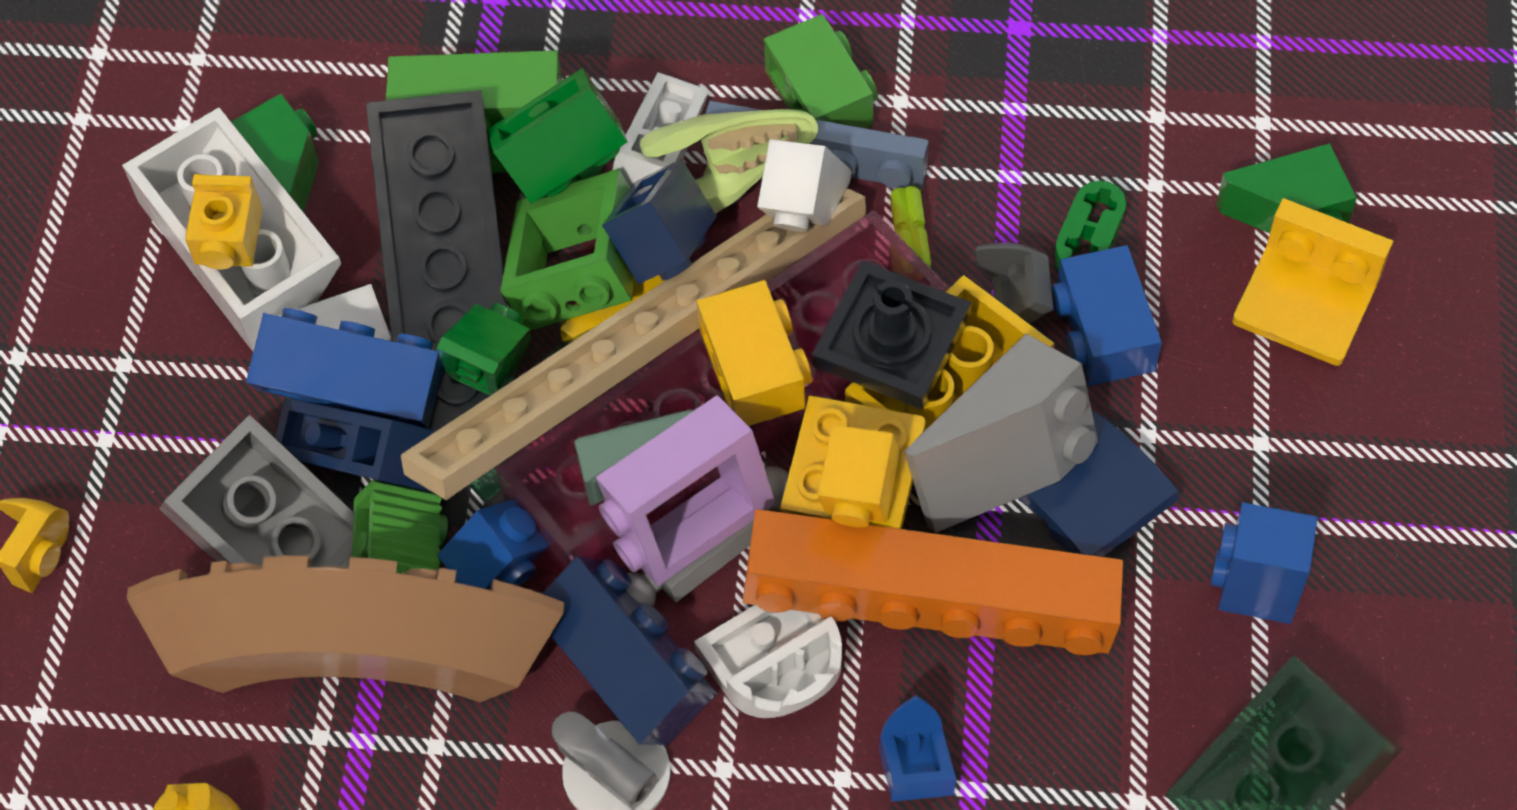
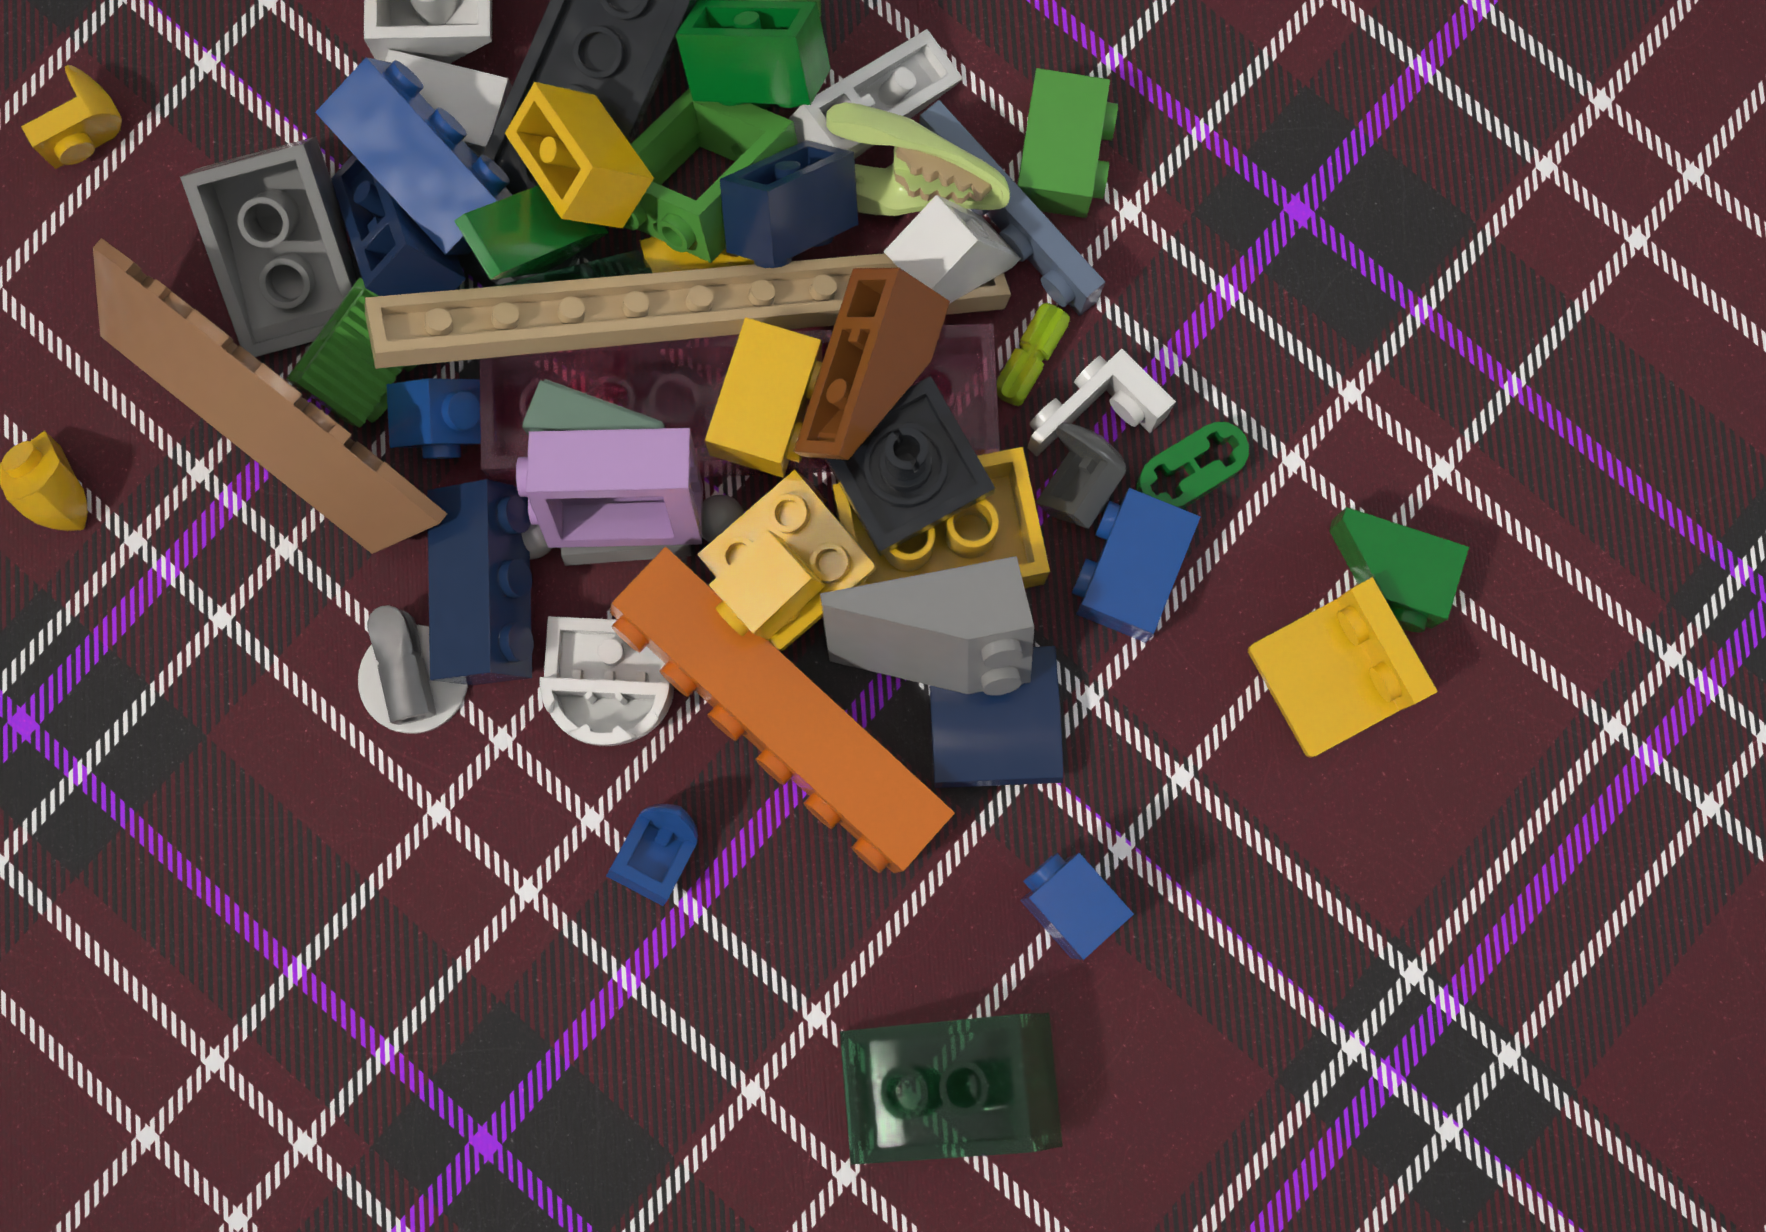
camera: 30 degrees right, 20 degrees up
(483, 273) = (578, 156): none -> yellow brick
(810, 270) = (873, 357): none -> dark orange slope
(997, 203) = (1133, 398): none -> white bracket

